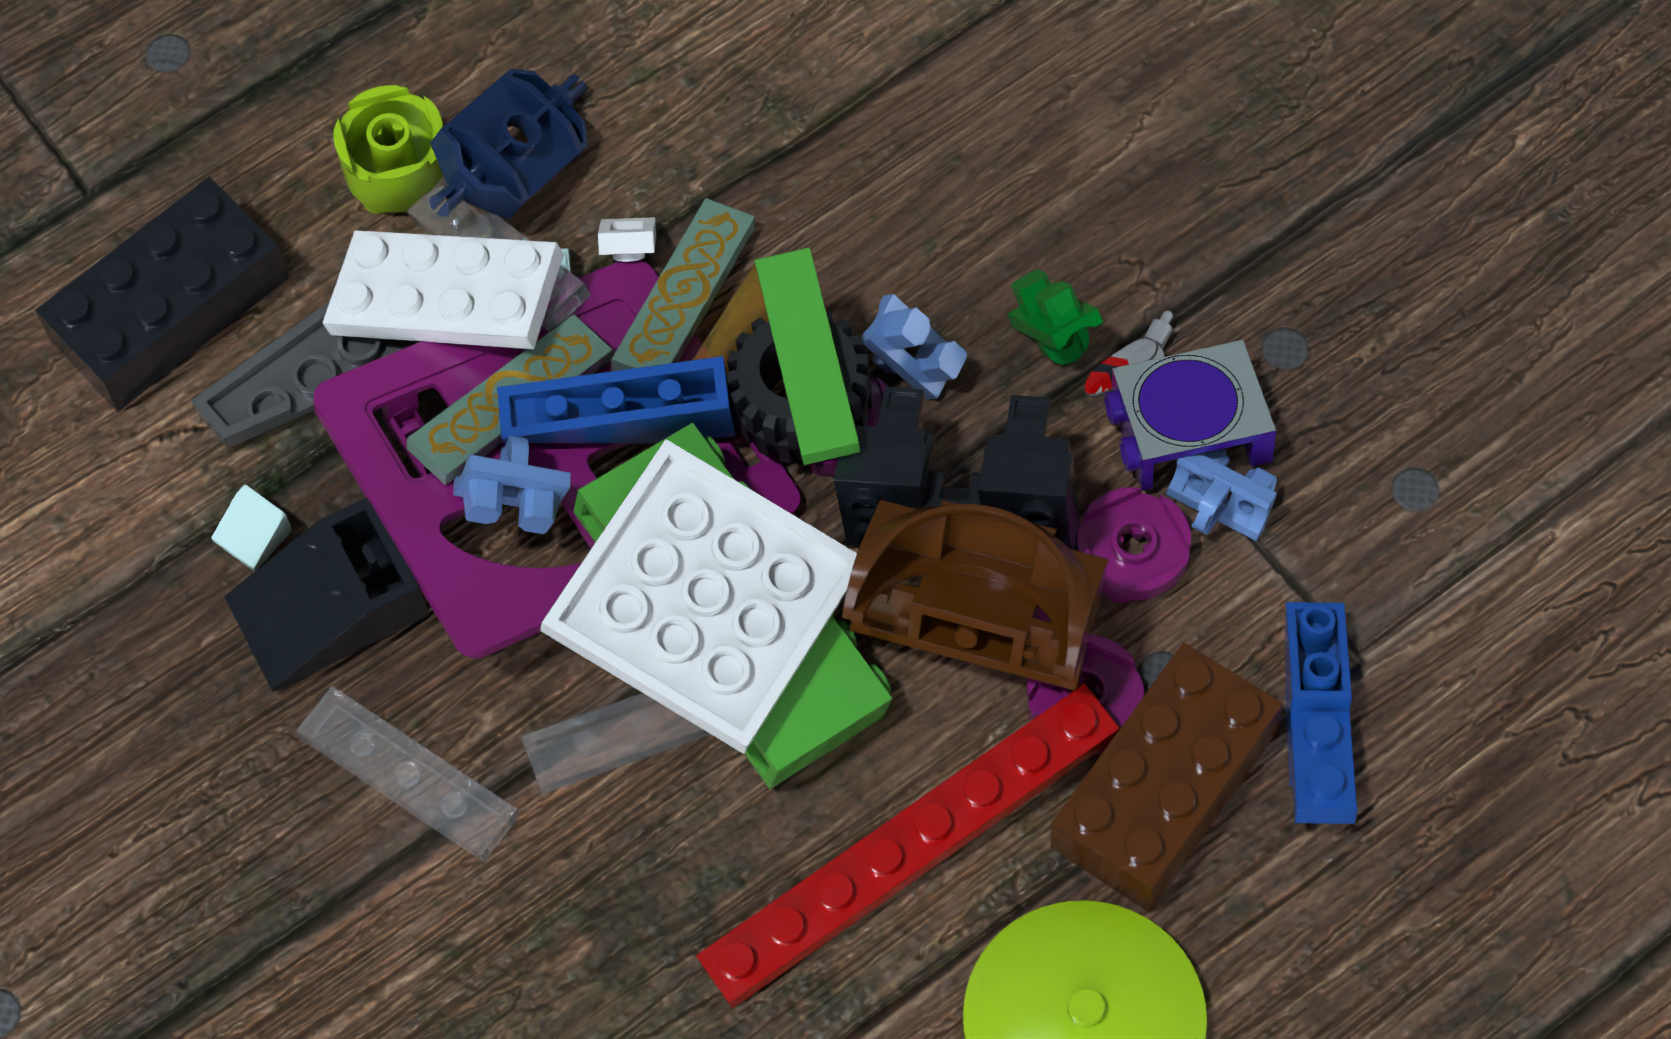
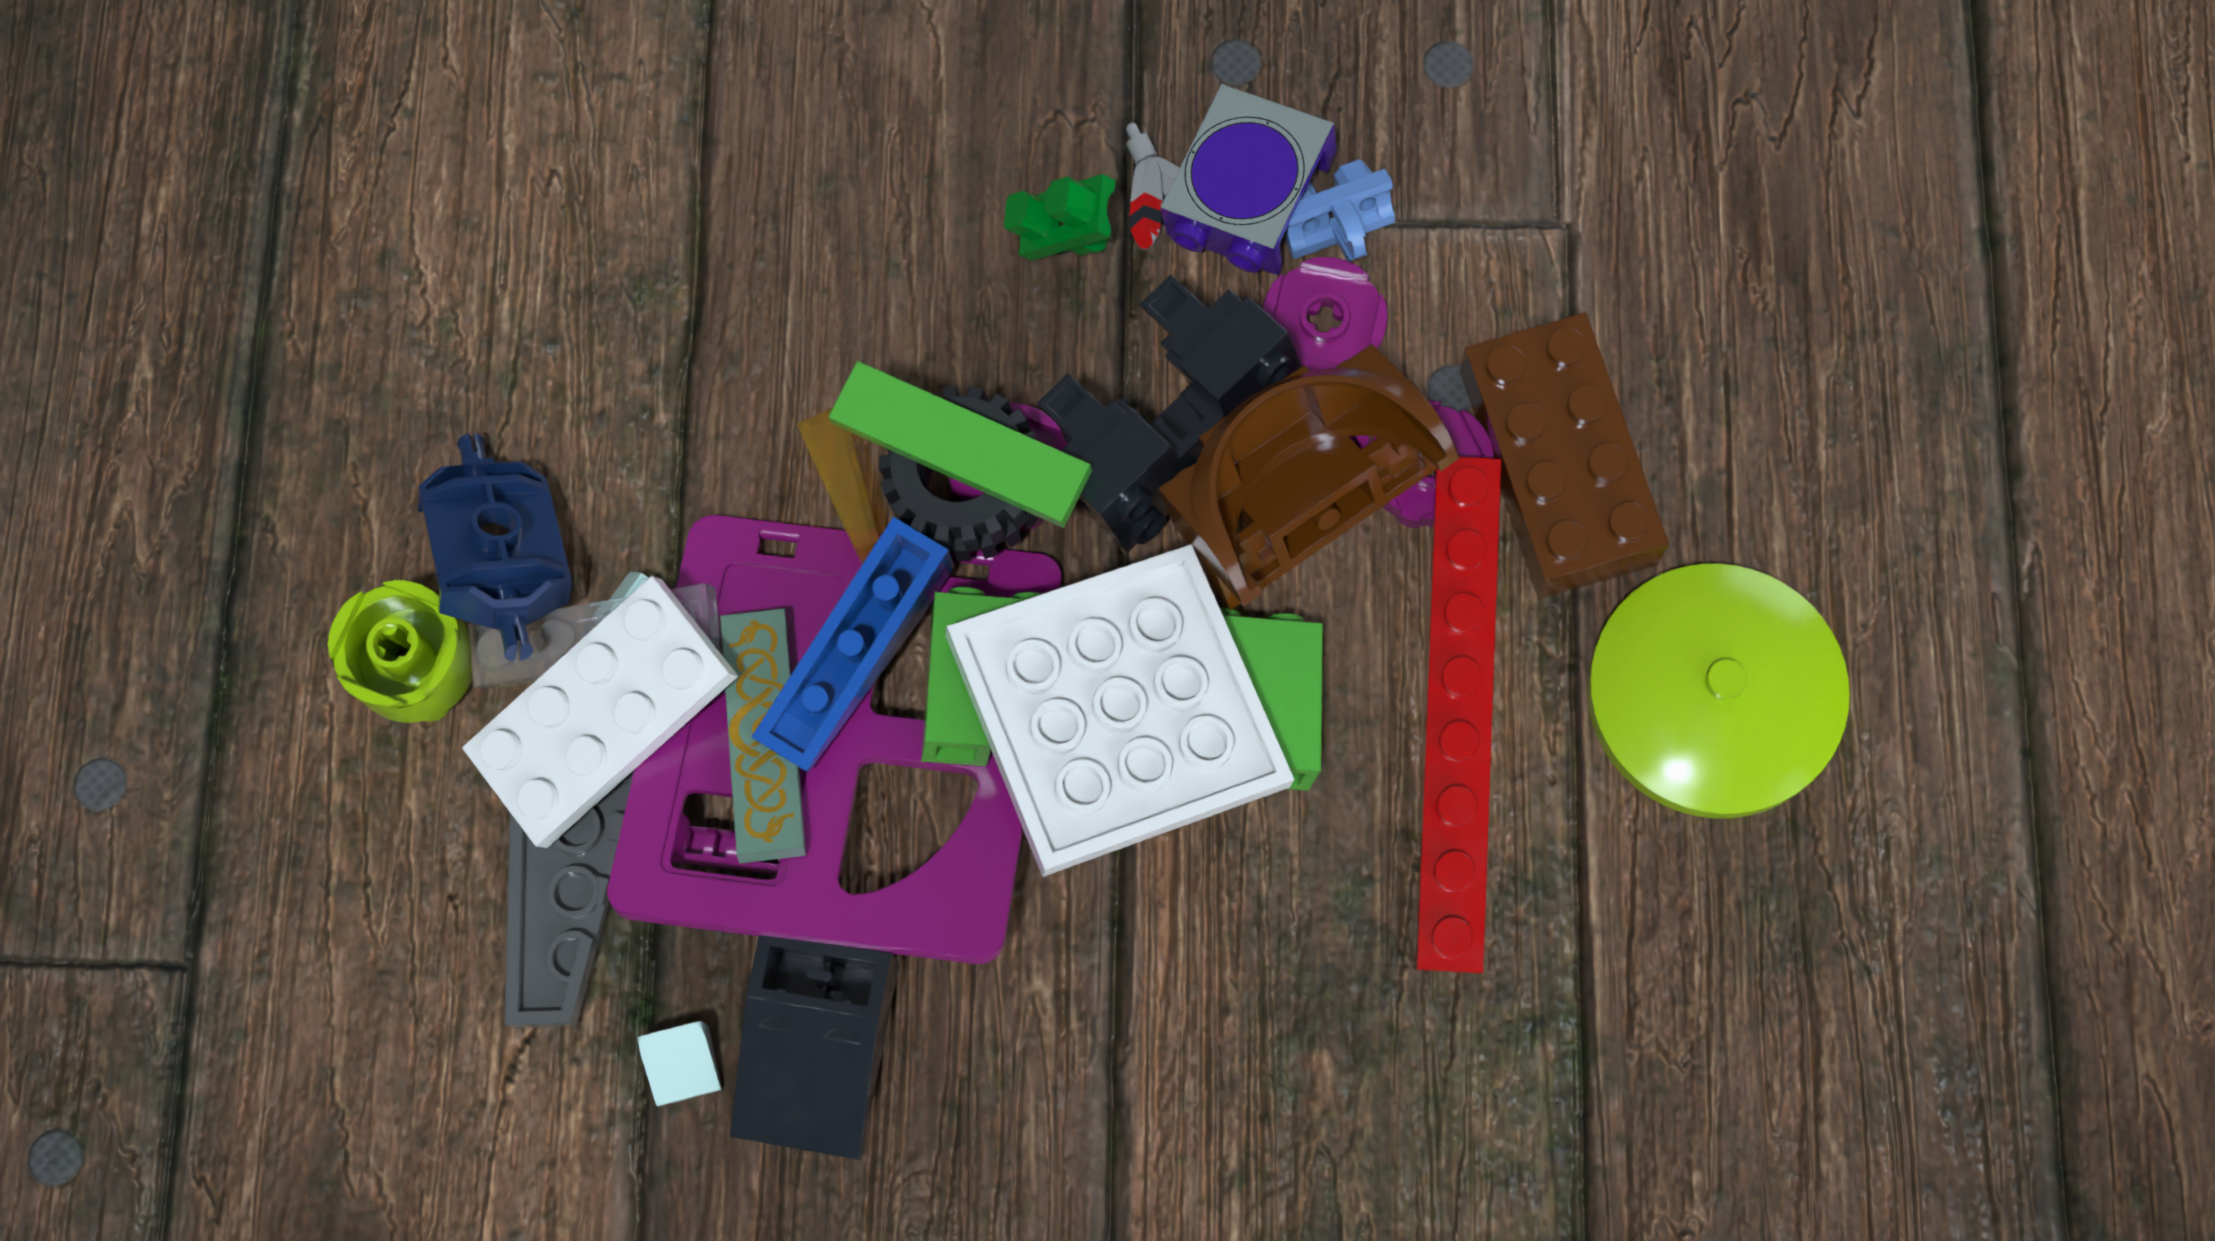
camera: 50 degrees left, 10 degrees up
(163, 293) = (367, 971): black brick -> none
(408, 773) = (1039, 1095): clear tile -> none
(512, 482) = (856, 791): medium blue hips -> none
(605, 740) = (1144, 906): clear tile -> none
(627, 238) = (672, 512): white plate -> none
(685, 287) = (771, 506): sand green tile -> none
(905, 327) = (981, 347): medium blue hips -> none
(1319, 713) = (1583, 276): blue slope -> none

